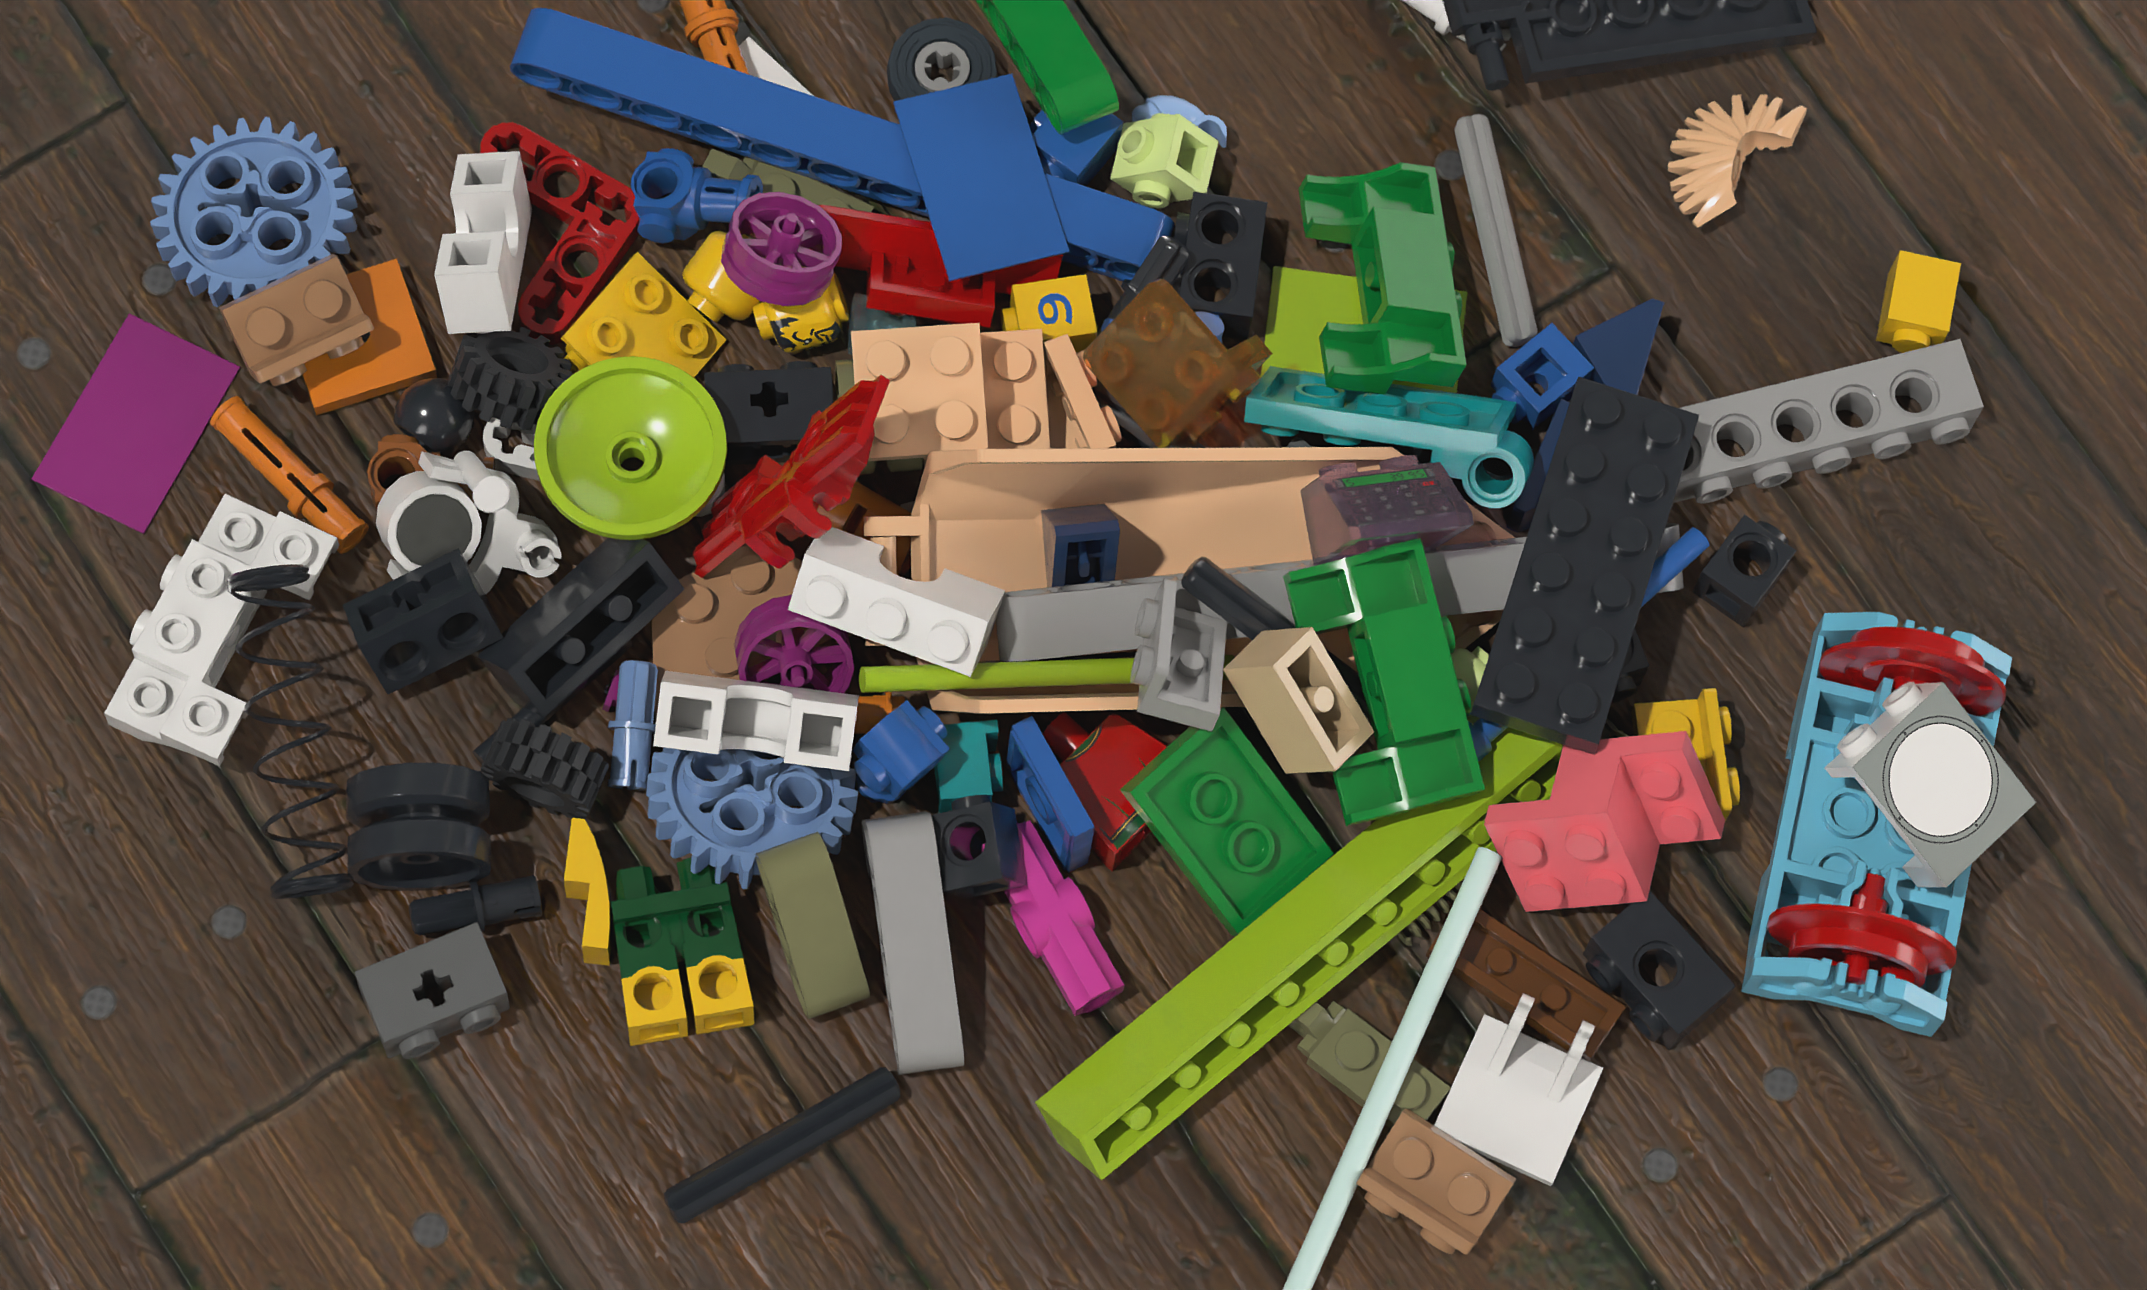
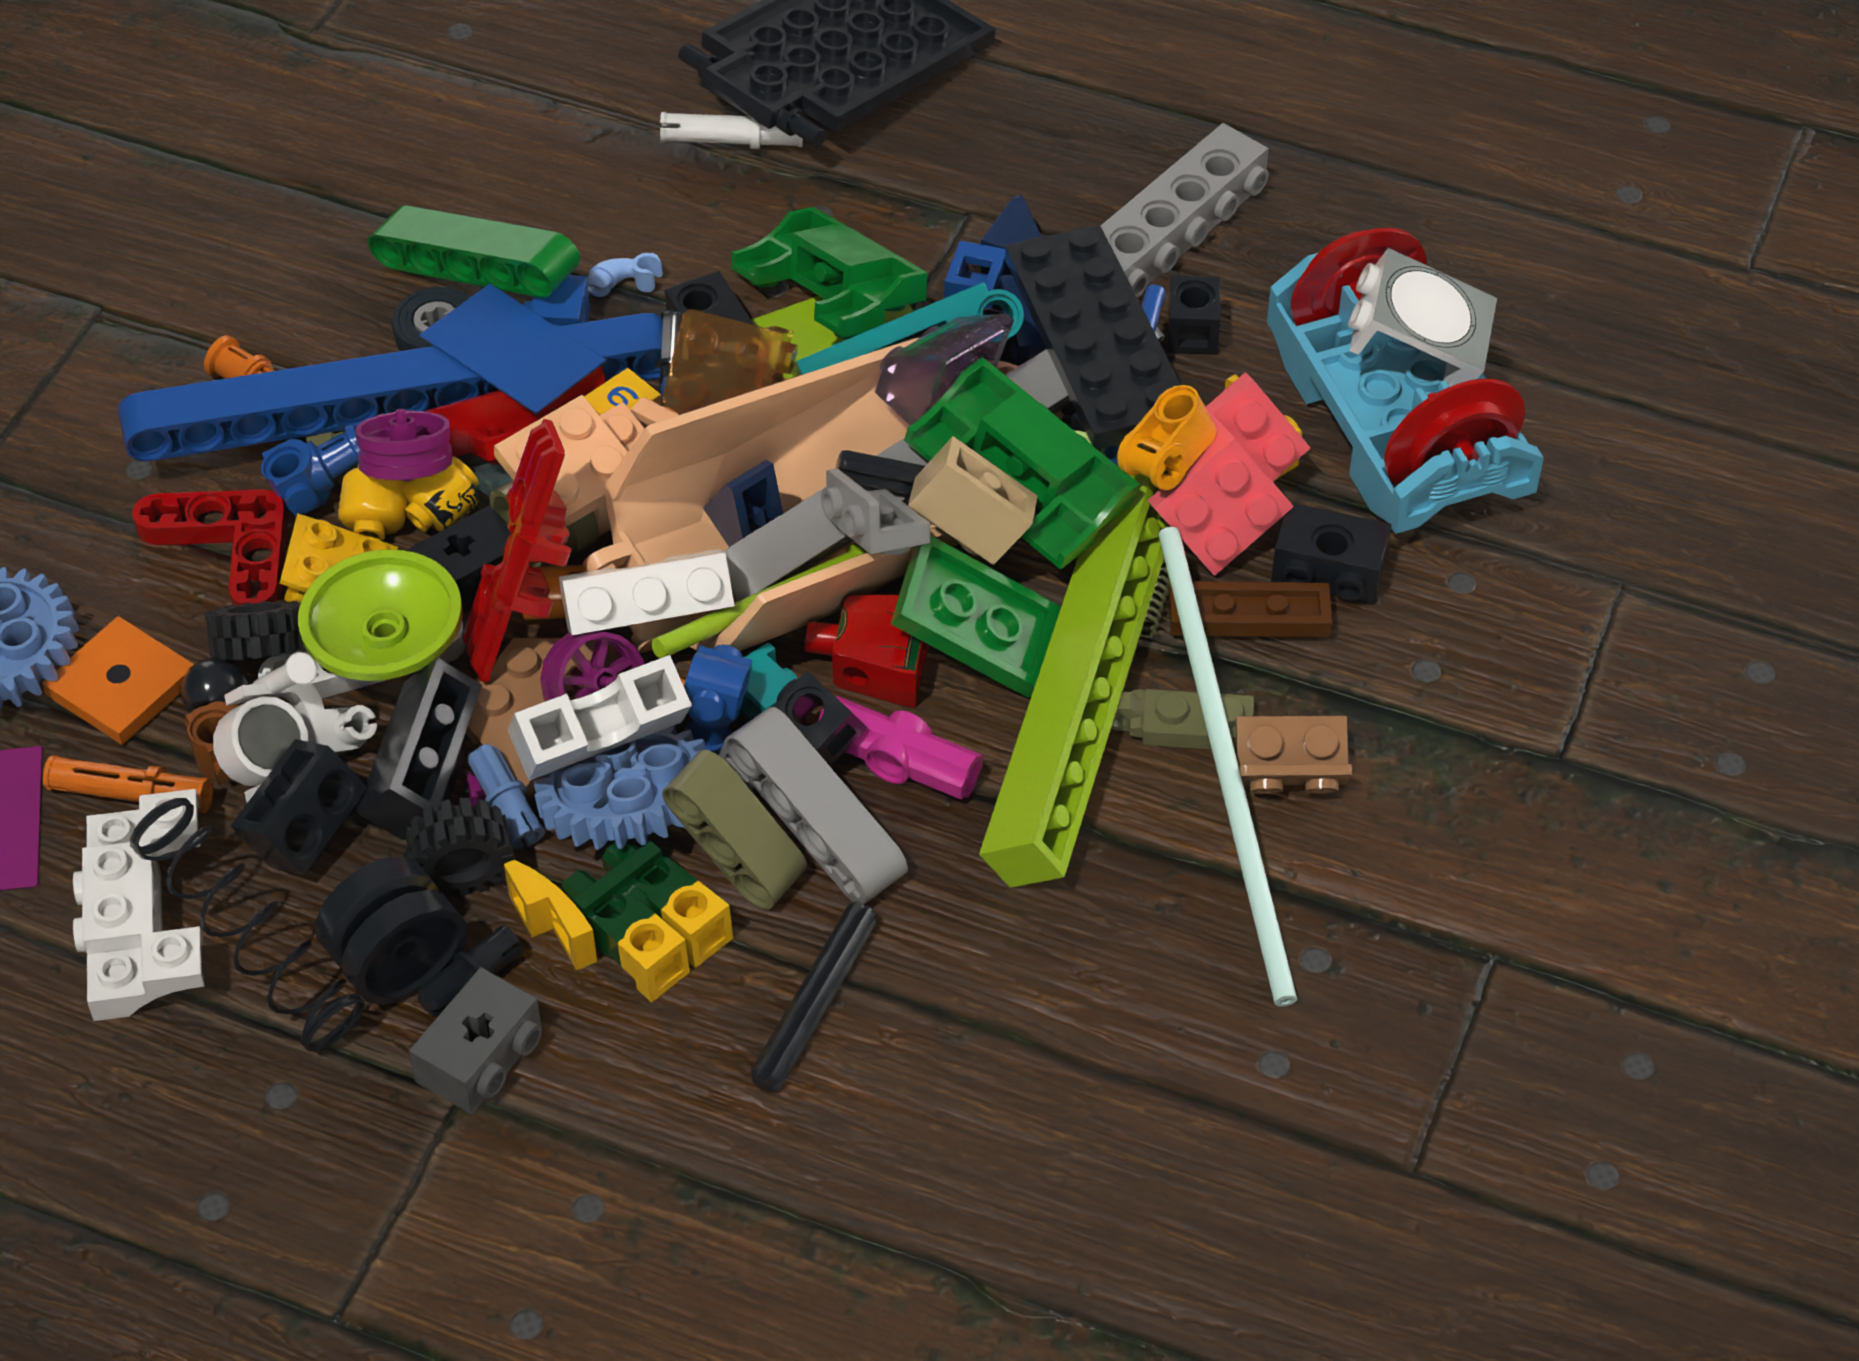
camera: 25 degrees left, 20 degrees down
(297, 321) = (66, 676): medium nougat bracket -> none
(484, 259) = (182, 556): white arch -> none
(1049, 795) = (842, 659): blue tile -> none
(1163, 159) = (628, 284): yellowish green brick -> none
(1495, 230) = (876, 225): light grey axle -> none
(1519, 1096) = (1302, 673): white plate -> none
(1537, 767) = (1171, 438): none -> light orange piece
(1719, 146) = (983, 120): light nougat hair -> none
(1918, 301) = (1177, 121): yellow brick -> none

